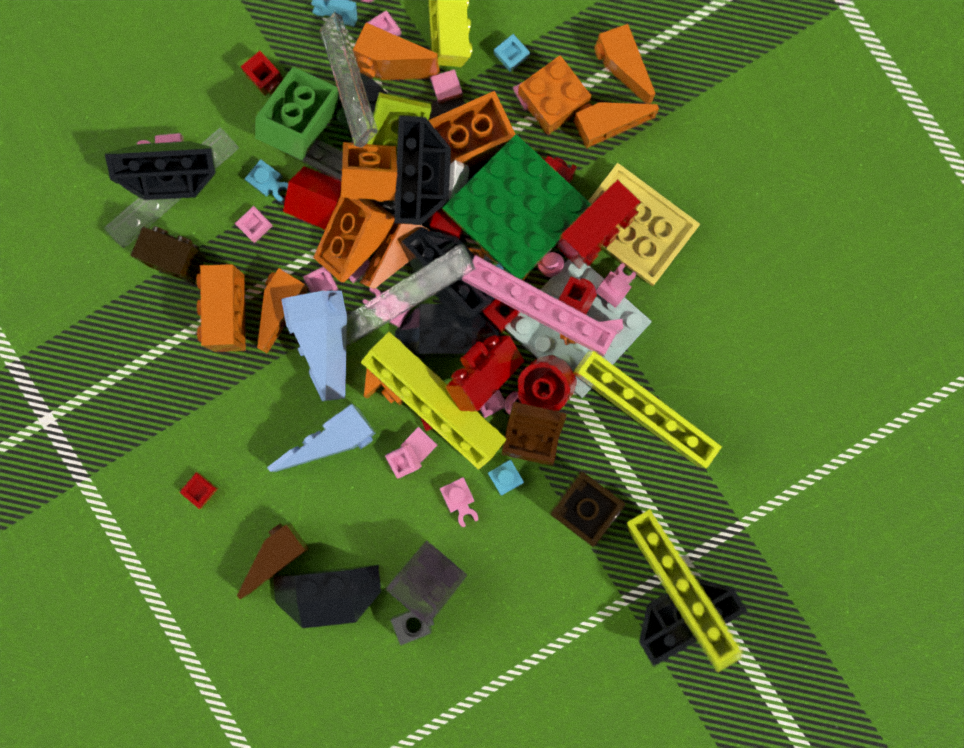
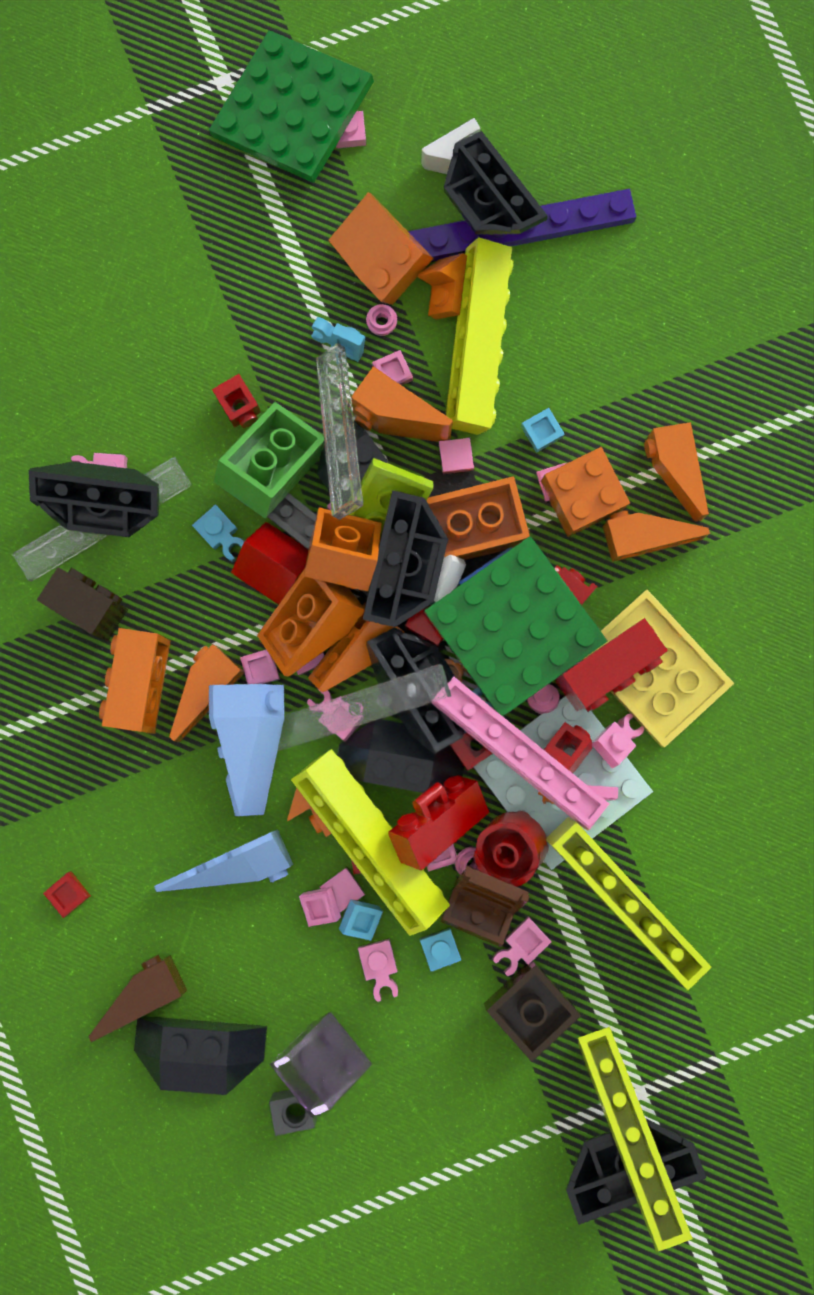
camera: 10 degrees right, 0 degrees up
(254, 224) = (192, 582): bright pink tile -> none
(437, 465) = (360, 920): none -> medium azure plate
(572, 458) = (525, 942): none -> bright pink plate

